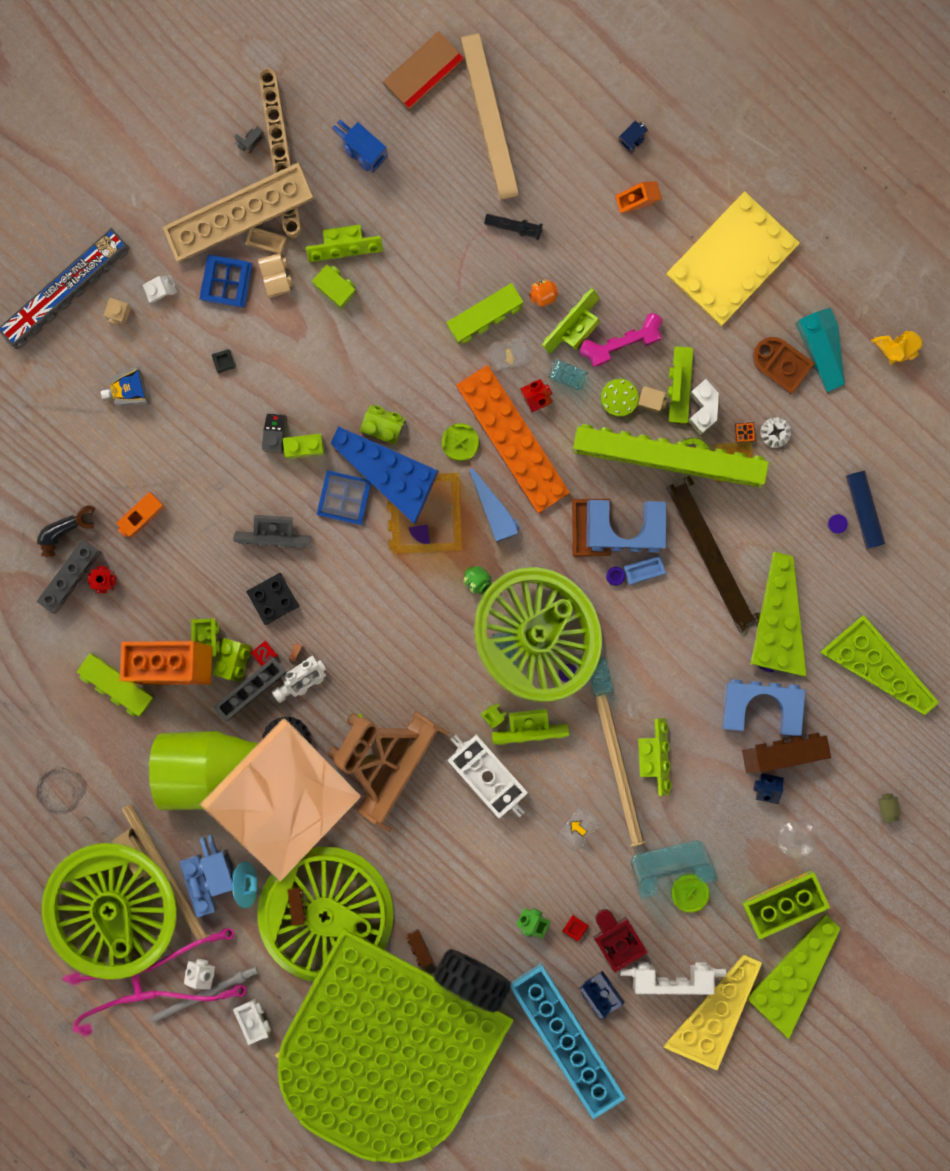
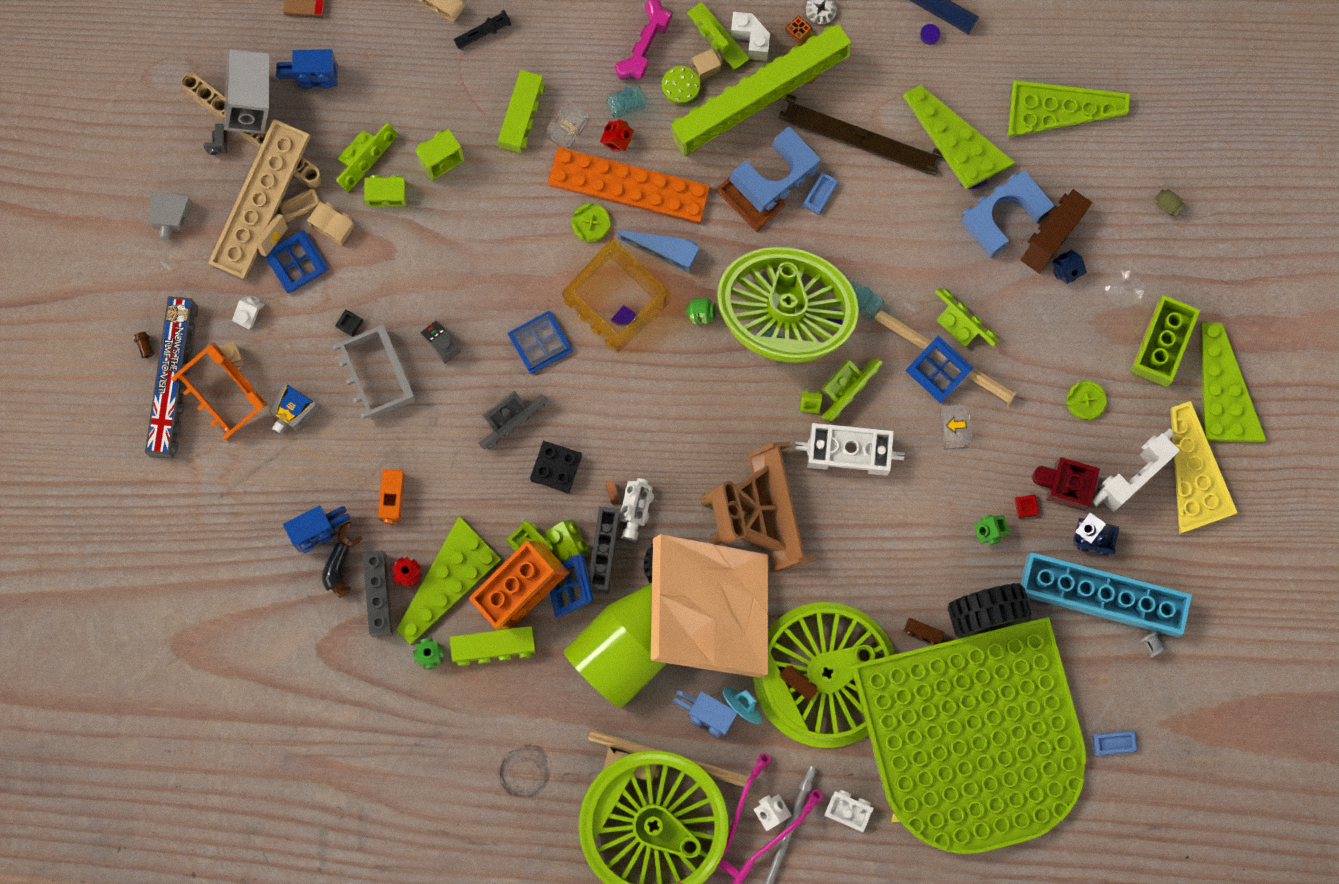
camera: 45 degrees left, 10 degrees down
(66, 247) = (143, 343): none -> reddish brown pin
(66, 490) = (314, 527): none -> blue brick
(72, 651) = (432, 660): none -> bright green brick
(104, 308) = (220, 358): none -> orange hinge
(137, 608) = (453, 574): none -> lime wing
(167, 164) = (169, 213): none -> light grey torso
(194, 880) = (705, 742): medium blue piece -> none
(203, 699) = (574, 589): none -> blue piece
(224, 246) = (271, 234): none -> tan tile
(234, 402) = (381, 332): none -> light grey hinge
(263, 653) = (587, 516): red tile -> none
(298, 123) = (246, 91): none -> light grey brick
(303, 446) = (472, 329): lime brick -> none
(382, 424) = (518, 261): lime bracket -> none
(393, 474) = (566, 285): blue wing -> none
(395, 294) = (439, 154): none -> lime brick
(478, 1144) = (1114, 743): none -> medium blue tile
(543, 293) = (551, 58): orange head -> none
(569, 1104) = (1153, 644): none -> light grey bush
(575, 325) = (598, 60): lime bracket -> none
(599, 991) = (1092, 531): none -> brick
(605, 776) = (939, 369): none -> blue piece
(615, 576) = (802, 217): dark purple tile -> none
(670, 861) = (1038, 407): clear light blue windscreen -> none

